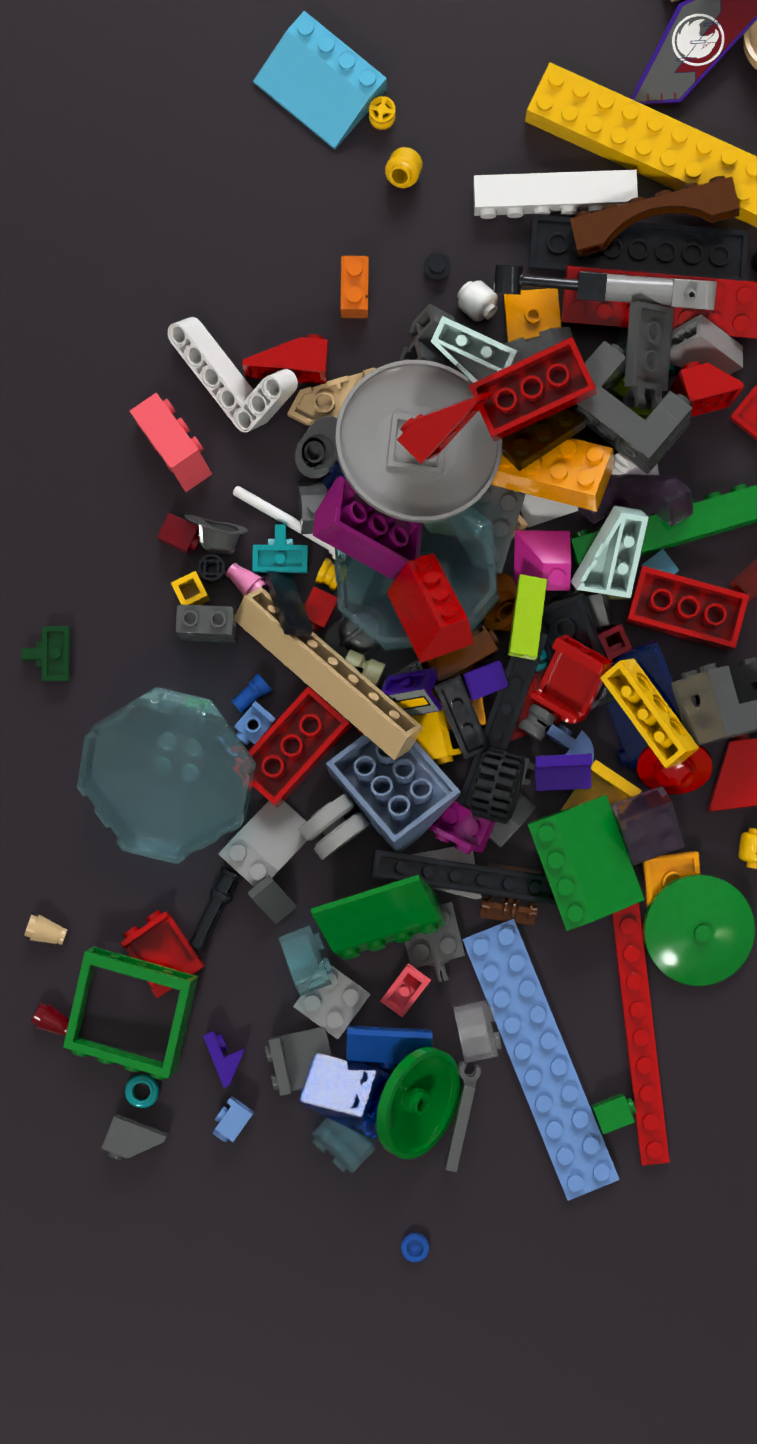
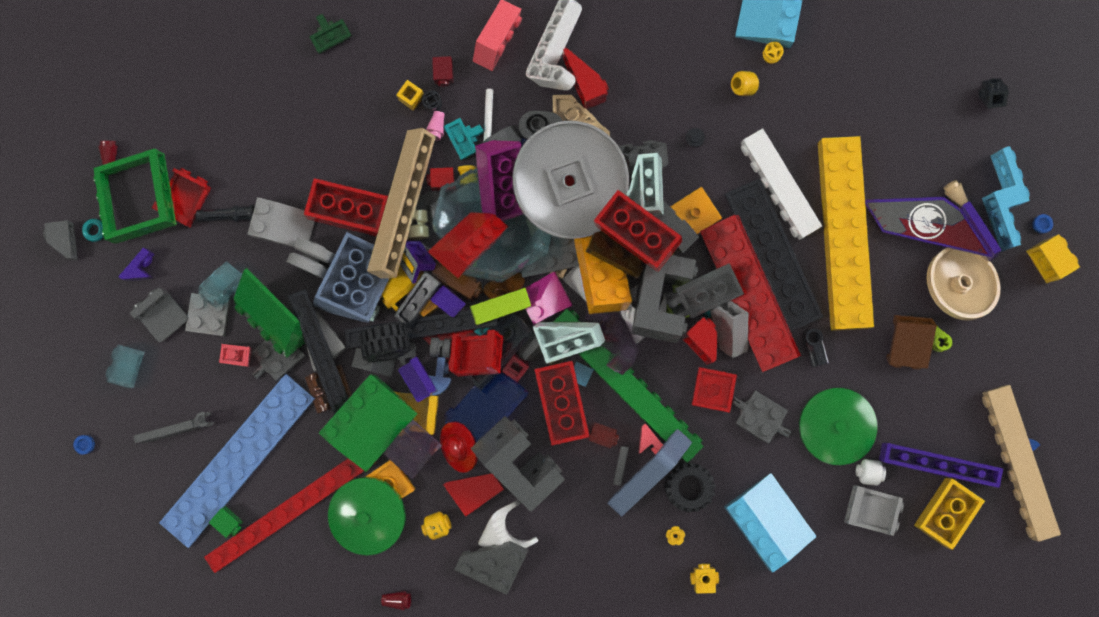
camera: 60 degrees right, 0 degrees up
(44, 930) = (159, 118): tan cone -> none
(166, 774) = (286, 139): clear light blue windscreen -> none
(206, 623) = (393, 114): dark grey panel -> none
(217, 536) = (454, 92): dark grey piece -> none
(232, 1120) = (103, 293): medium blue brick -> none
(256, 688) = (373, 167): blue pin -> none
(264, 719) = (356, 181): medium blue brick -> none
(272, 899) = (247, 245): dark grey tile -> none
(288, 604) = (432, 157): black tile -> none
(345, 1092) = (152, 354): clear blue slope -> none
(354, 286) = (653, 93): orange brick -> none
(384, 1044) = (196, 362): blue slope -> none
(418, 1102) = (166, 397): green dish -> none
(431, 433) = (577, 184): red slope -> none
(463, 828) = (347, 336): magenta bracket -> none
(476, 1031) = (233, 411): clear brick -> none
(477, 300) = (686, 173): white head -> none
(614, 287) = (732, 243): piece -> none
(649, 712) = (478, 411): yellow brick -> none
(708, 201) = (769, 222): reddish brown arch -> none

